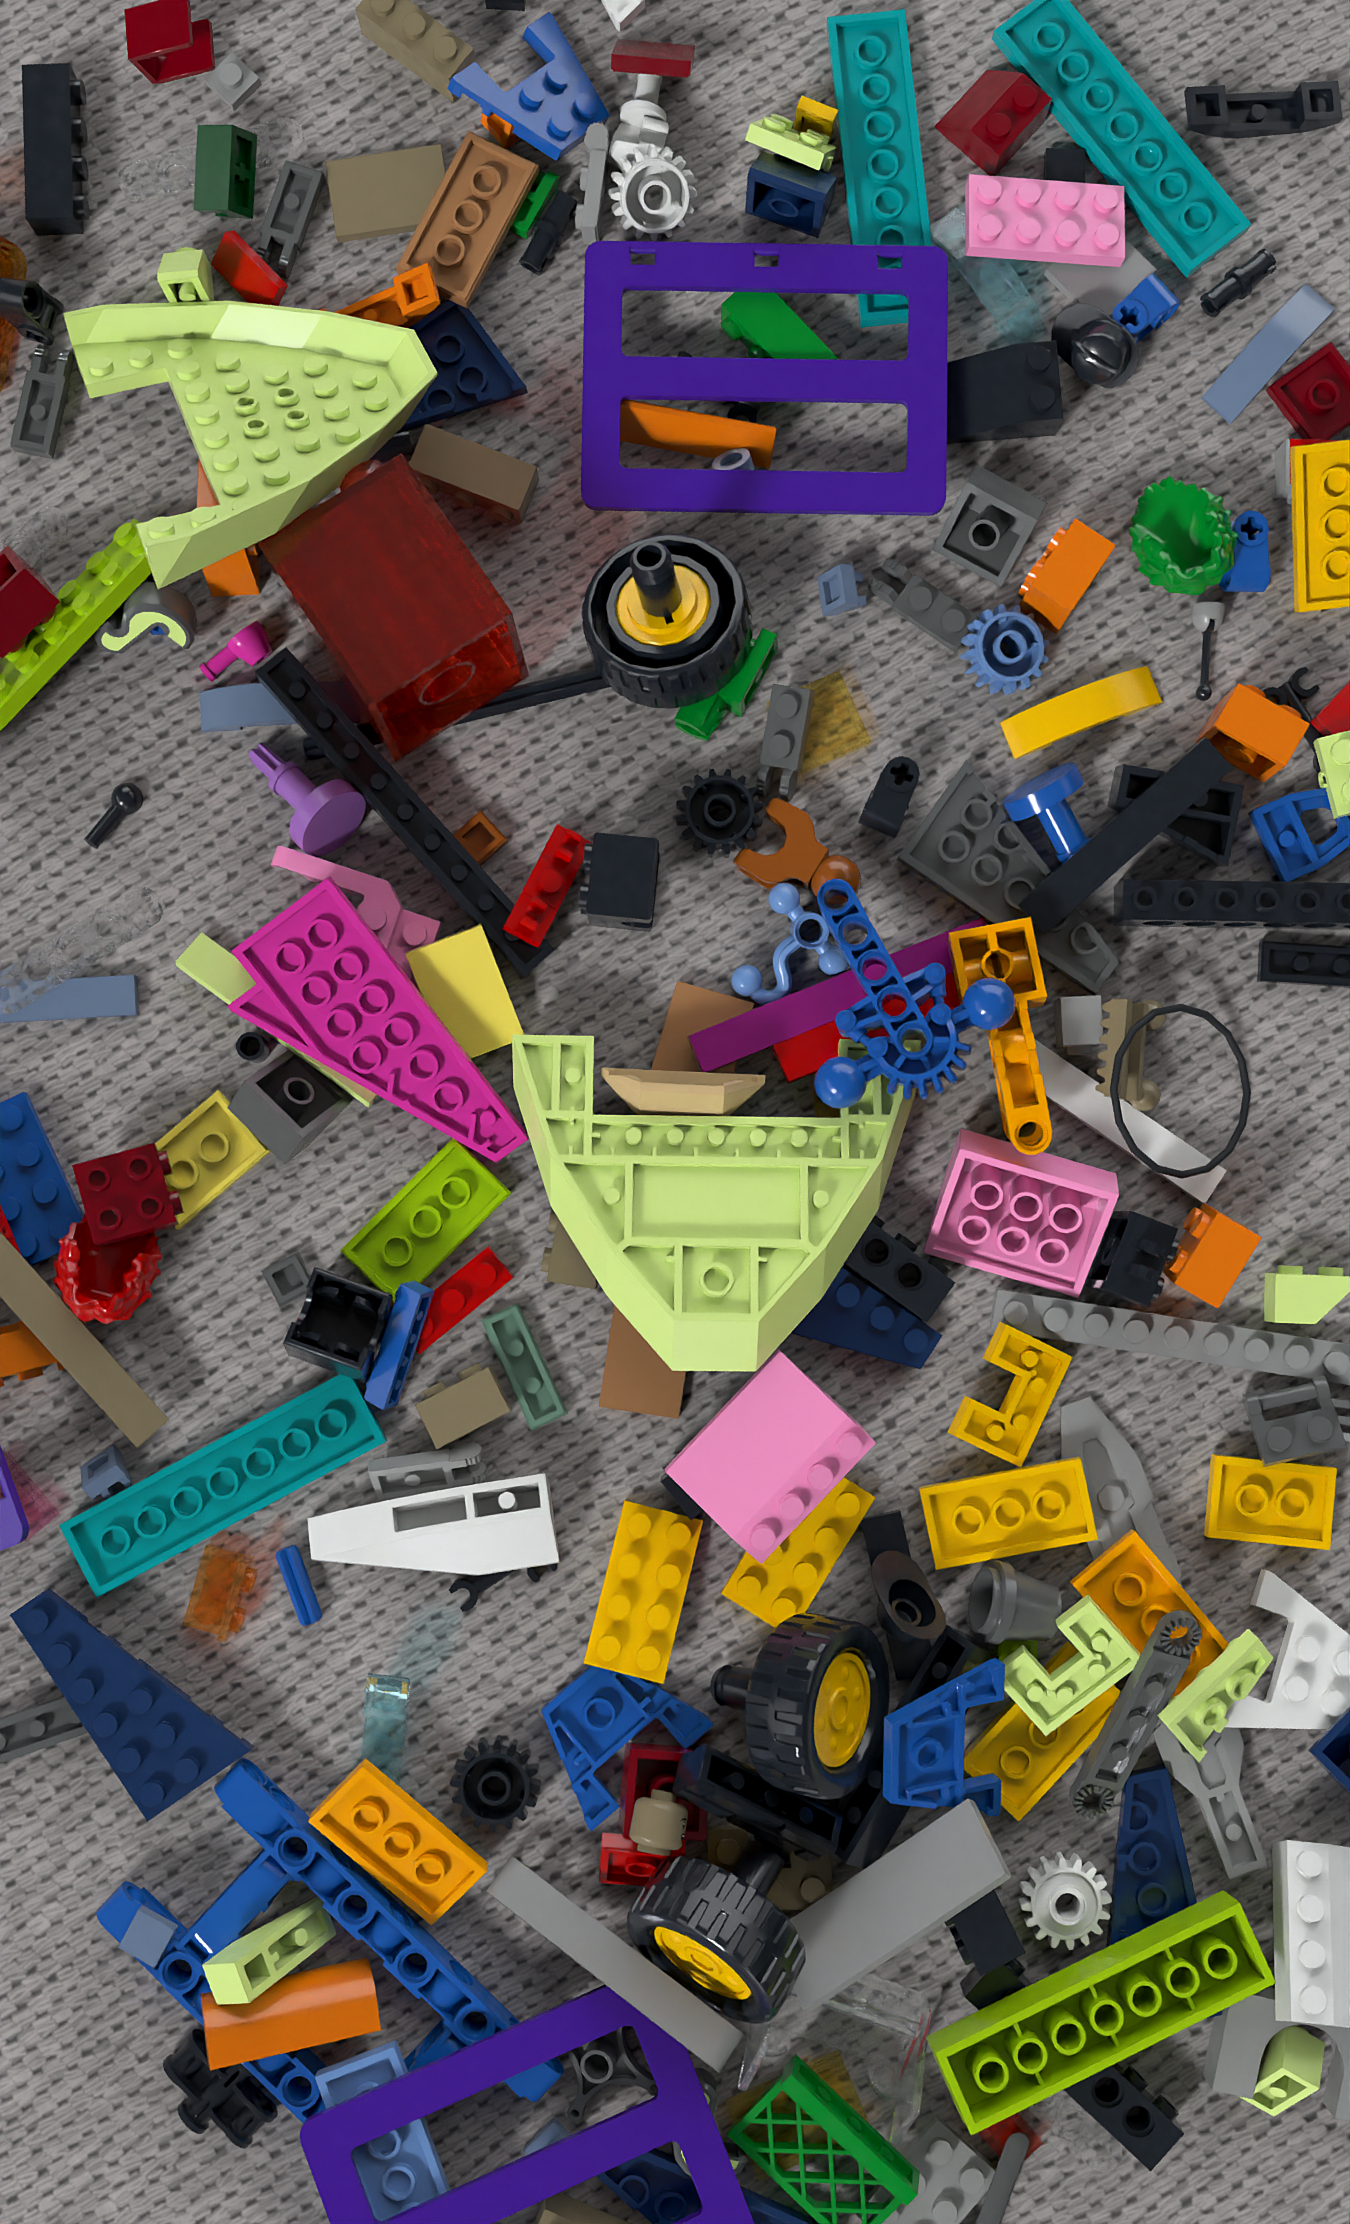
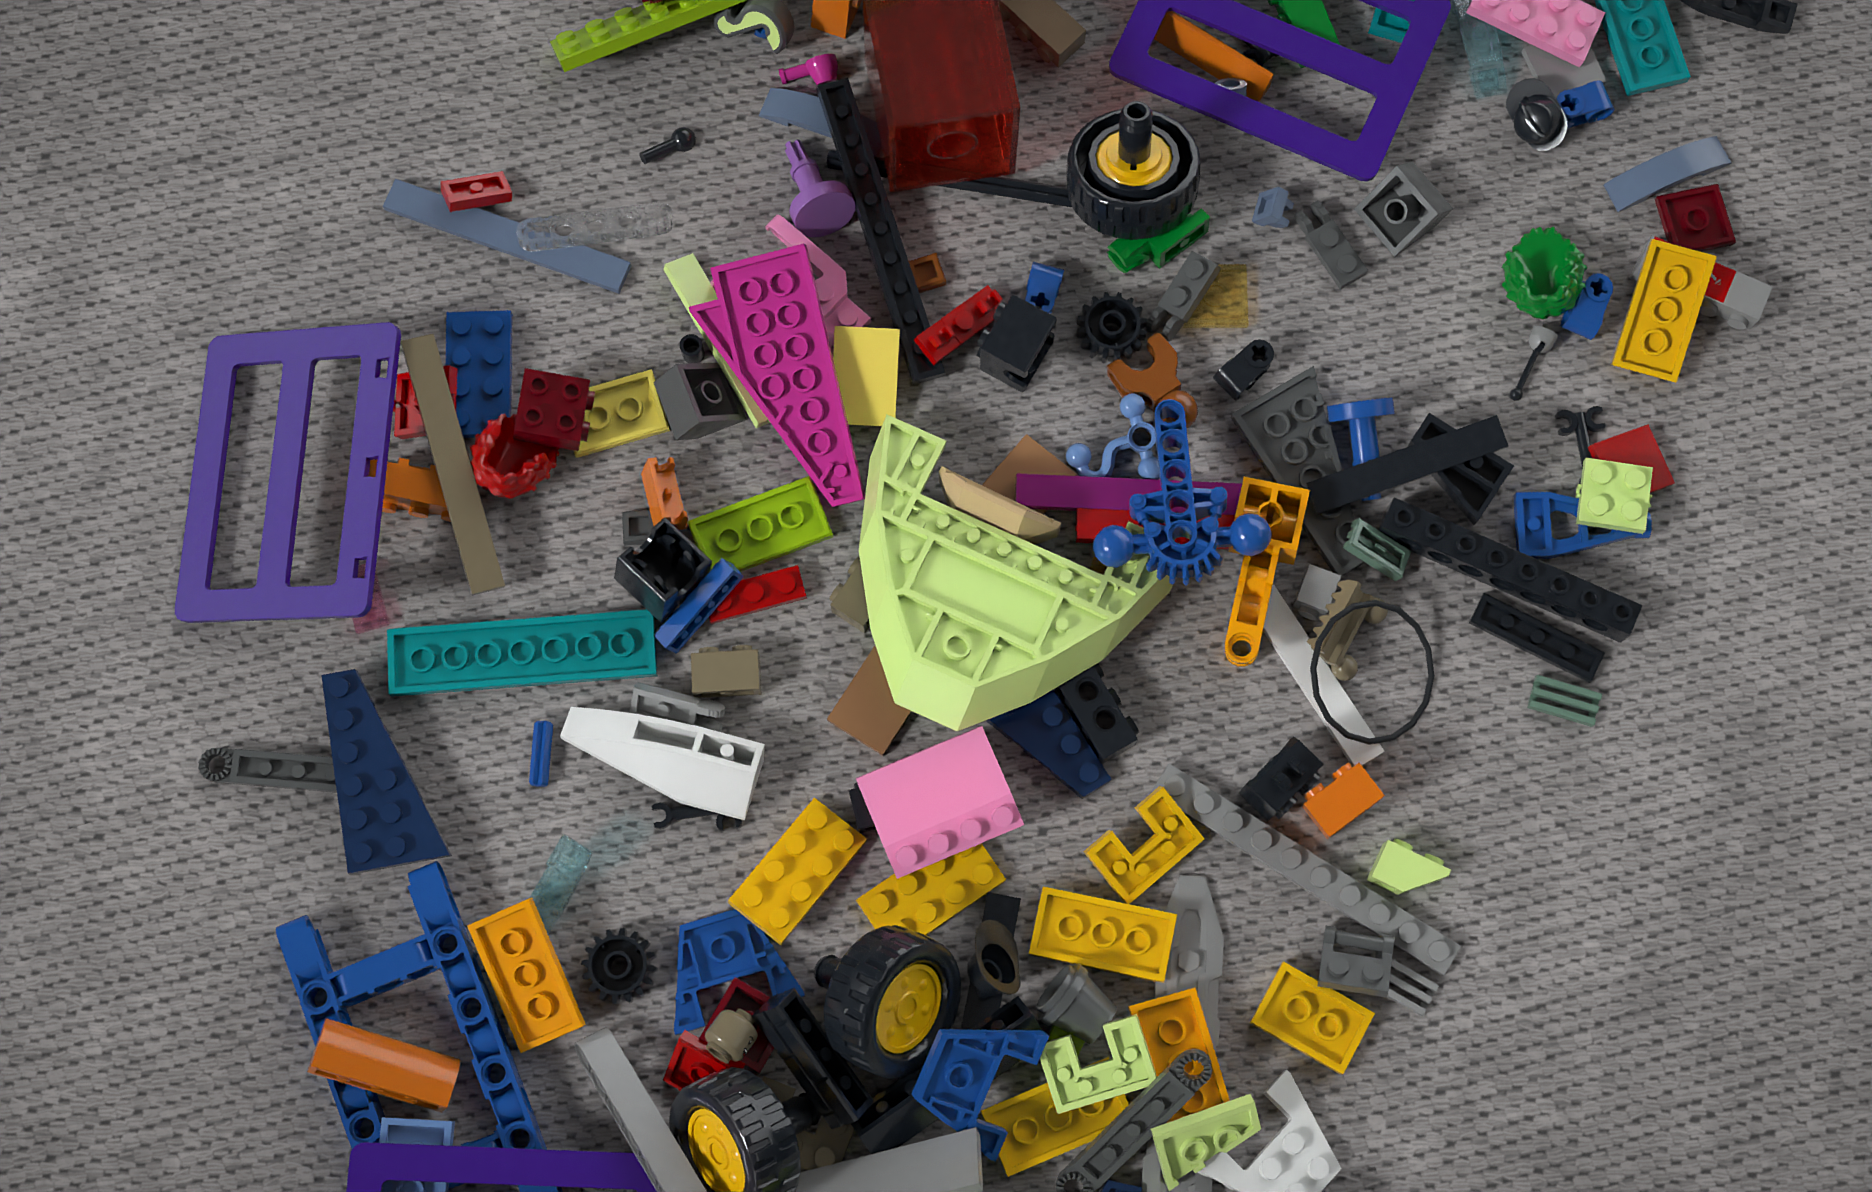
camera: 25 degrees right, 10 degrees down
(103, 1472) = (438, 605): sand blue tile -> none
(148, 1936) = (308, 957): sand blue tile -> none
(220, 1591) = (480, 732): clear orange bracket -> none
(231, 2099) = (307, 1117): black axle -> none
(268, 1953) = (392, 1010): yellowish green slope -> none
(300, 1233) = (663, 493): none -> orange hinge
(524, 1366) = (784, 667): sand green tile -> none
(621, 801) = (1043, 286): none -> blue piece
(985, 655) = (1365, 311): medium blue gear -> none
(1004, 394) = (1452, 120): black slope -> none
(1021, 1213) = (1210, 713): bright pink slope -> none
(1063, 574) = (1443, 263): orange brick -> none
(1080, 710) = (1416, 366): yellow slope -> none
(1100, 944) = (1376, 554): none -> sand green tile
(1238, 283) = (1664, 114): black pin -> none
(1254, 731) = (1538, 432): orange brick -> none

